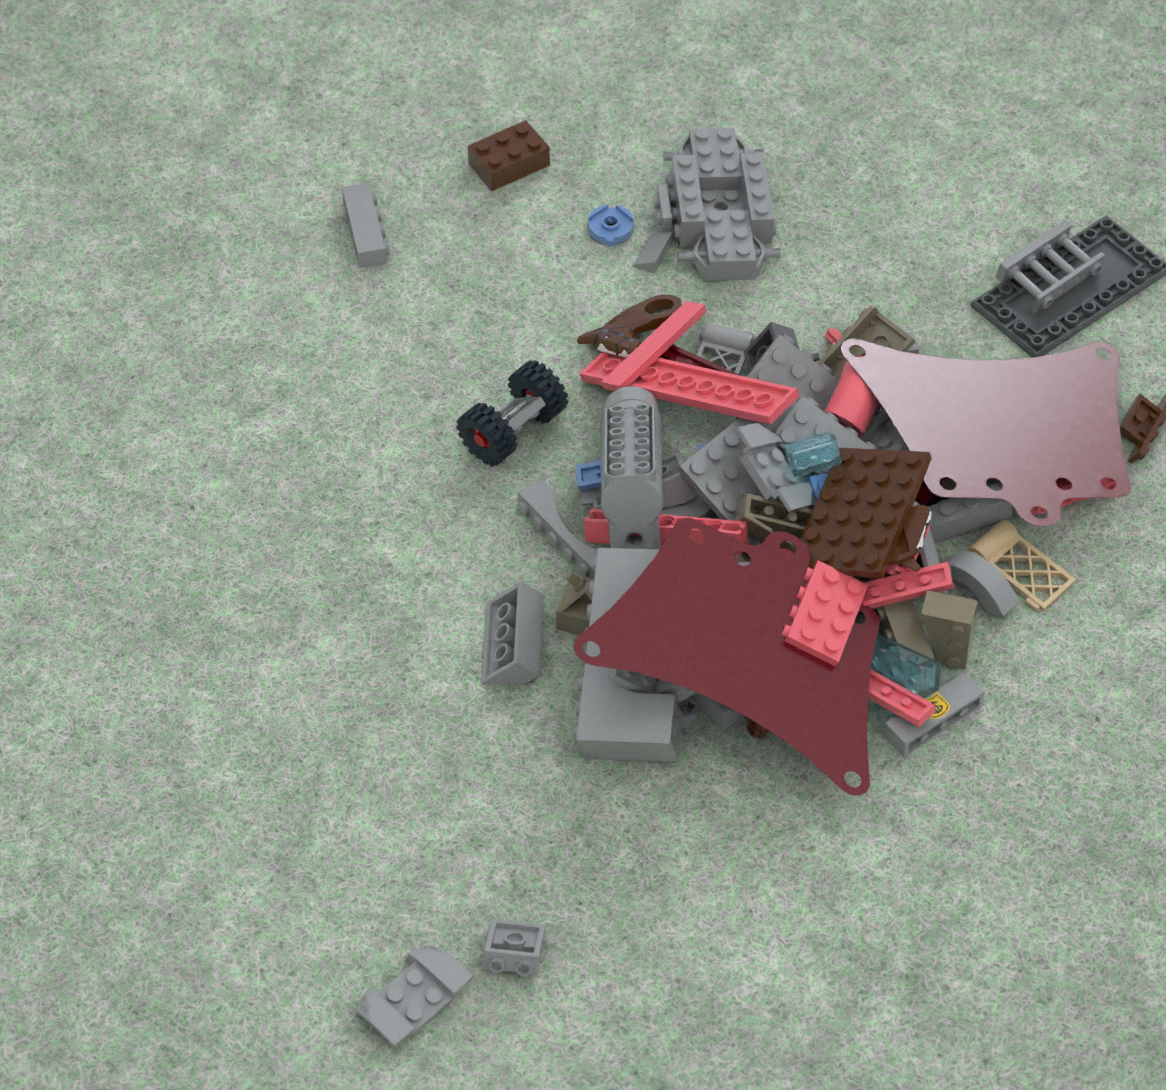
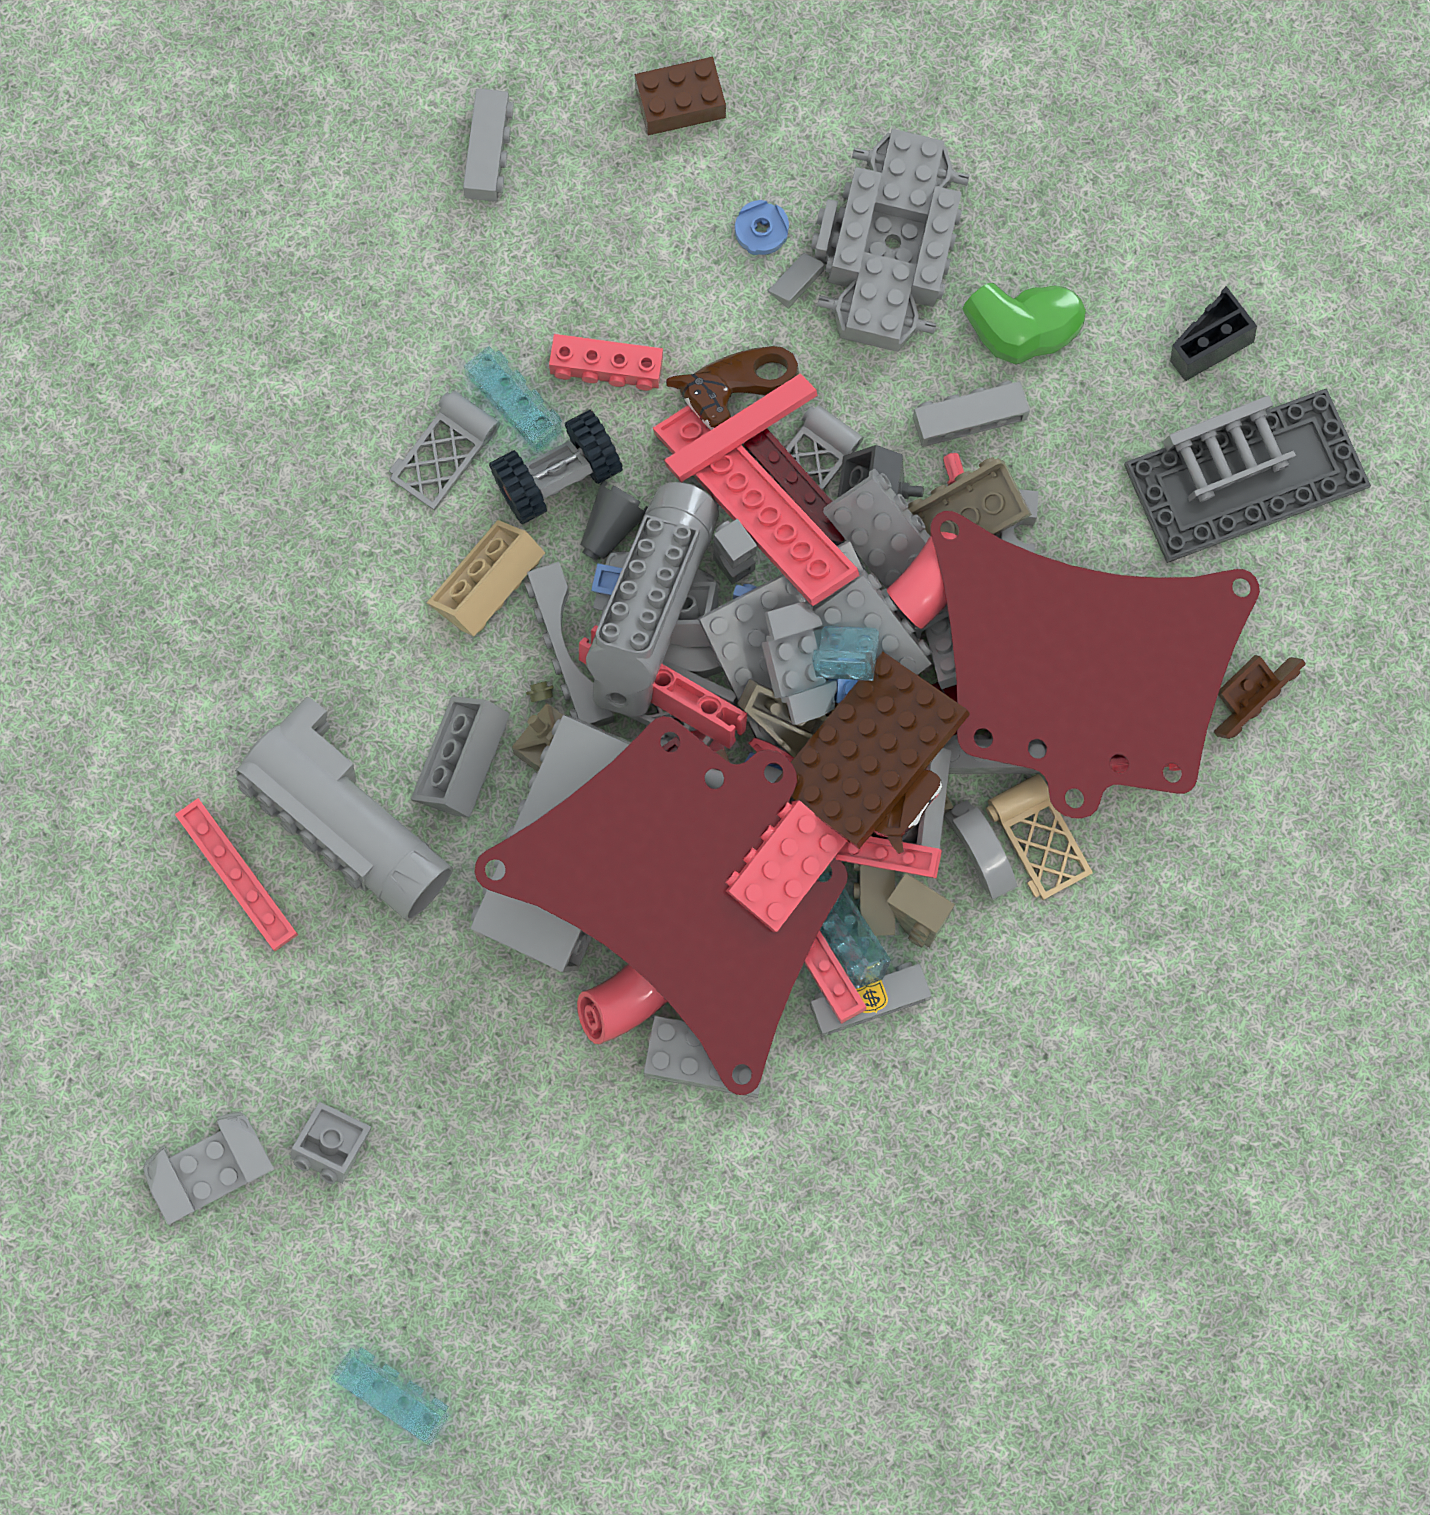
camera: 15 degrees right, 25 degrees up
(352, 774) = (236, 874): none -> coral plate
(396, 689) = (317, 797): none -> light grey piece
(421, 410) = (464, 419): none -> light grey piece
(453, 382) = (513, 398): none -> clear light blue brick
(484, 508) = (486, 577): none -> tan slope
(518, 340) = (606, 361): none -> coral brick
(558, 575) = (540, 691): none -> olive plate
(572, 438) = (610, 521): none -> dark grey cone
(683, 418) = (734, 550): none -> light grey arch
(726, 766) = (617, 1005): none -> coral brick
(805, 795) = (680, 1058): none -> light grey brick
(833, 300) = (970, 413): none -> light grey brick
(850, 231) = (1028, 325): none -> bright green piece
(1003, 201) = (1213, 337): none -> black wedge

